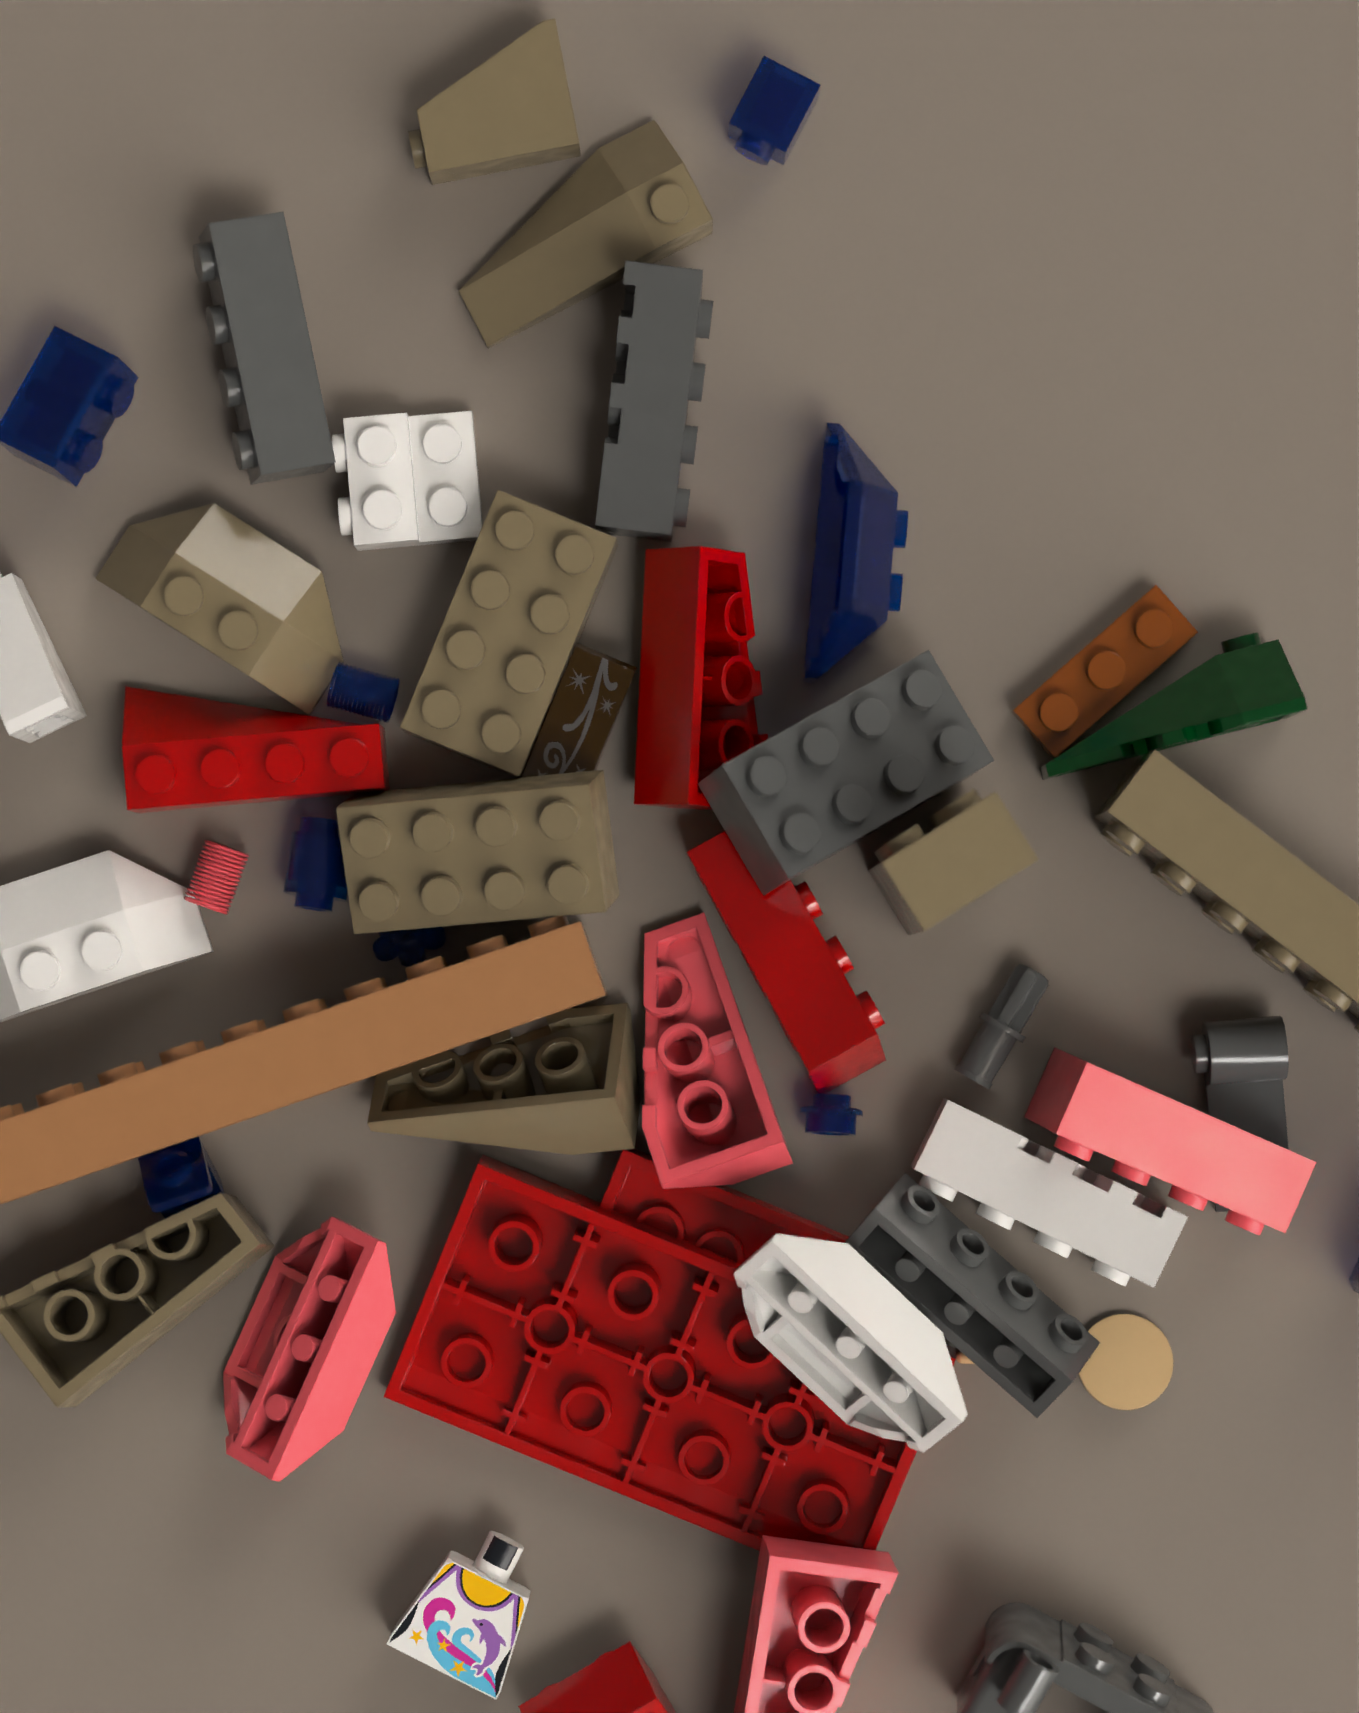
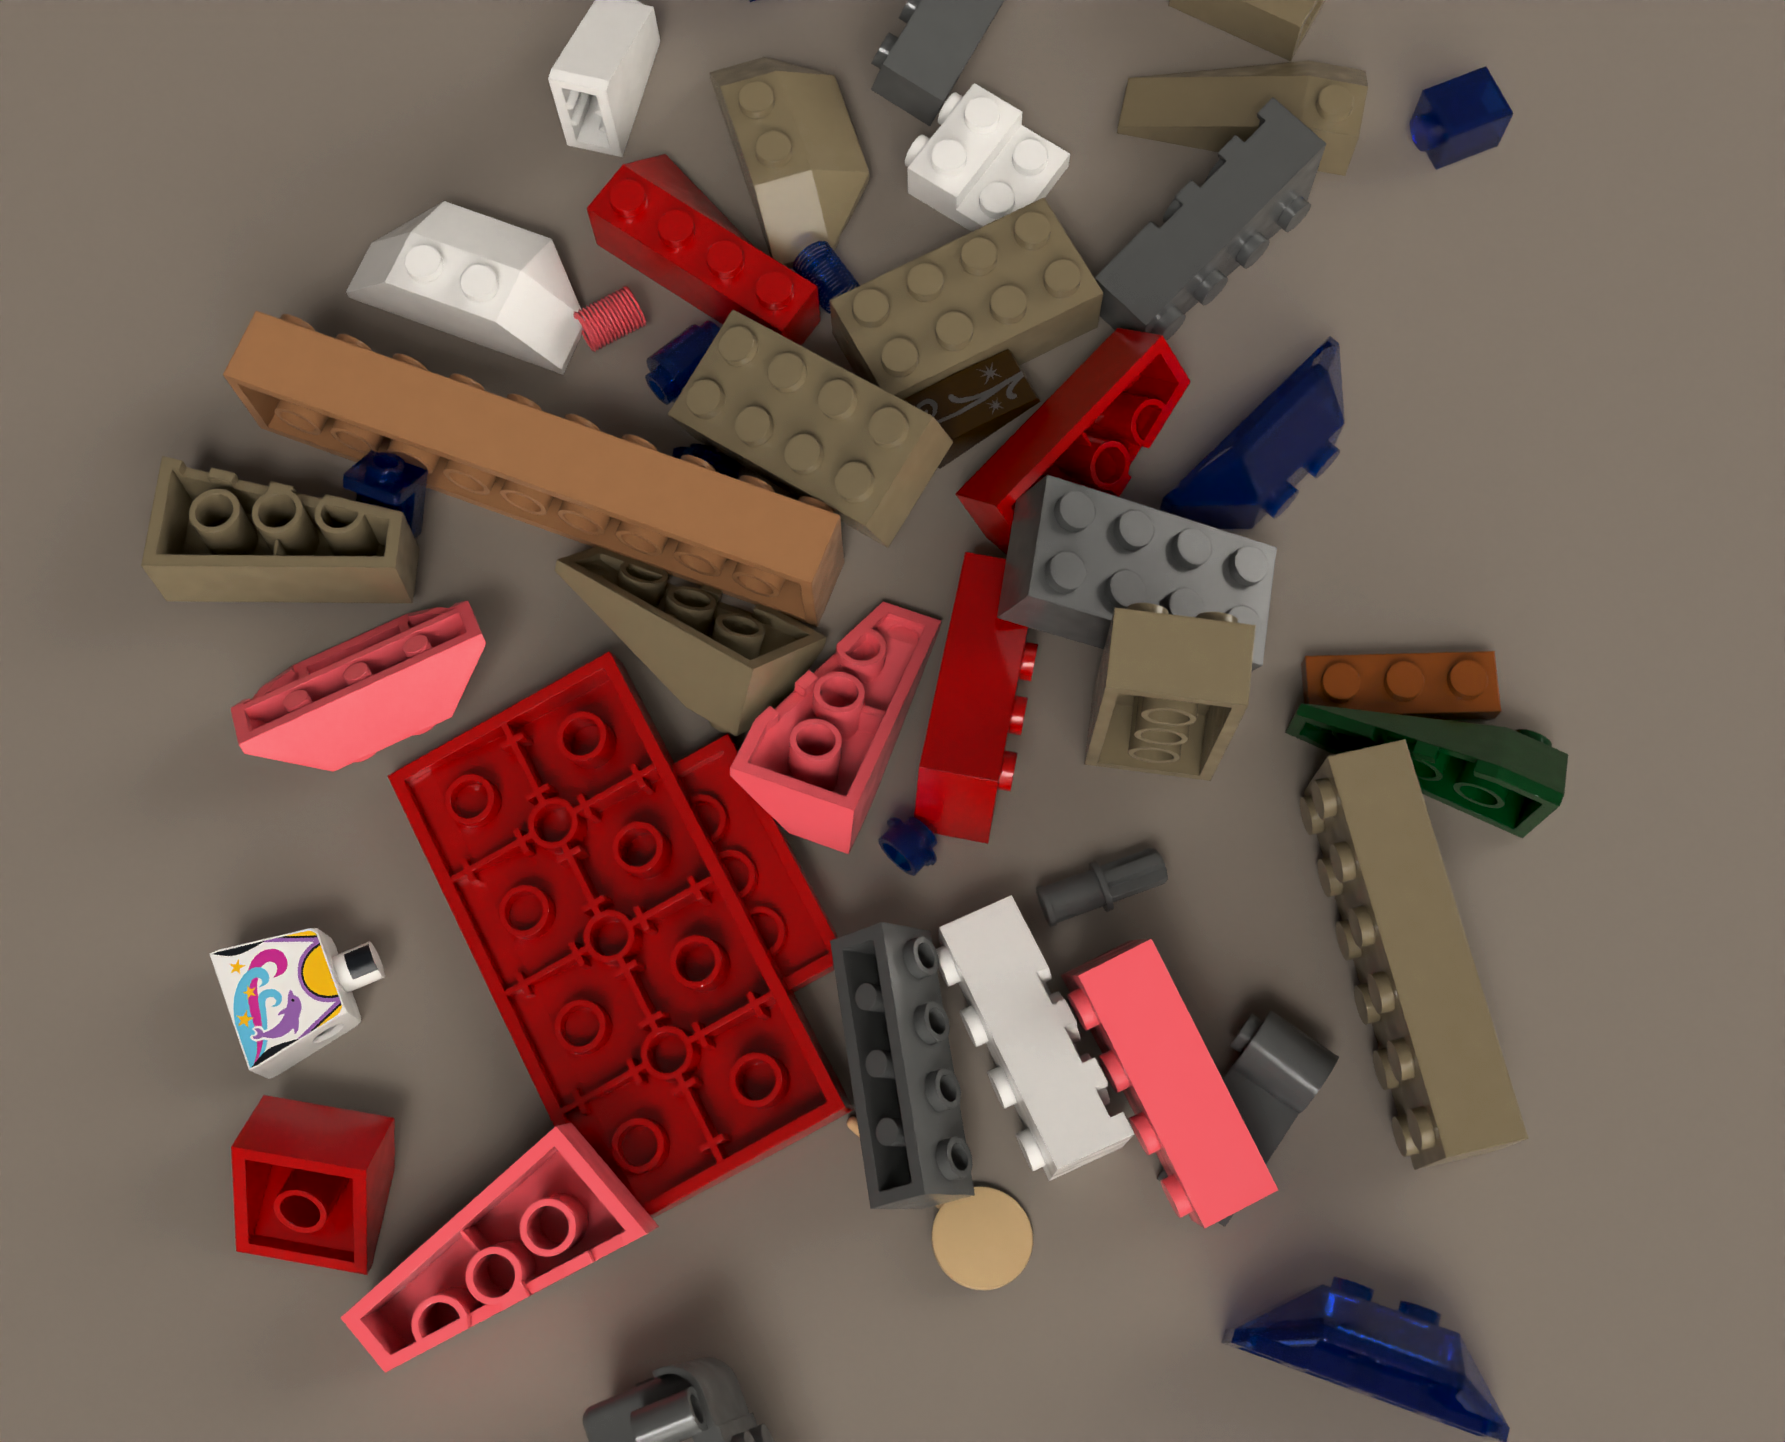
camera: 45 degrees right, 15 degrees down
(852, 1339) = (774, 1005): white wedge -> none

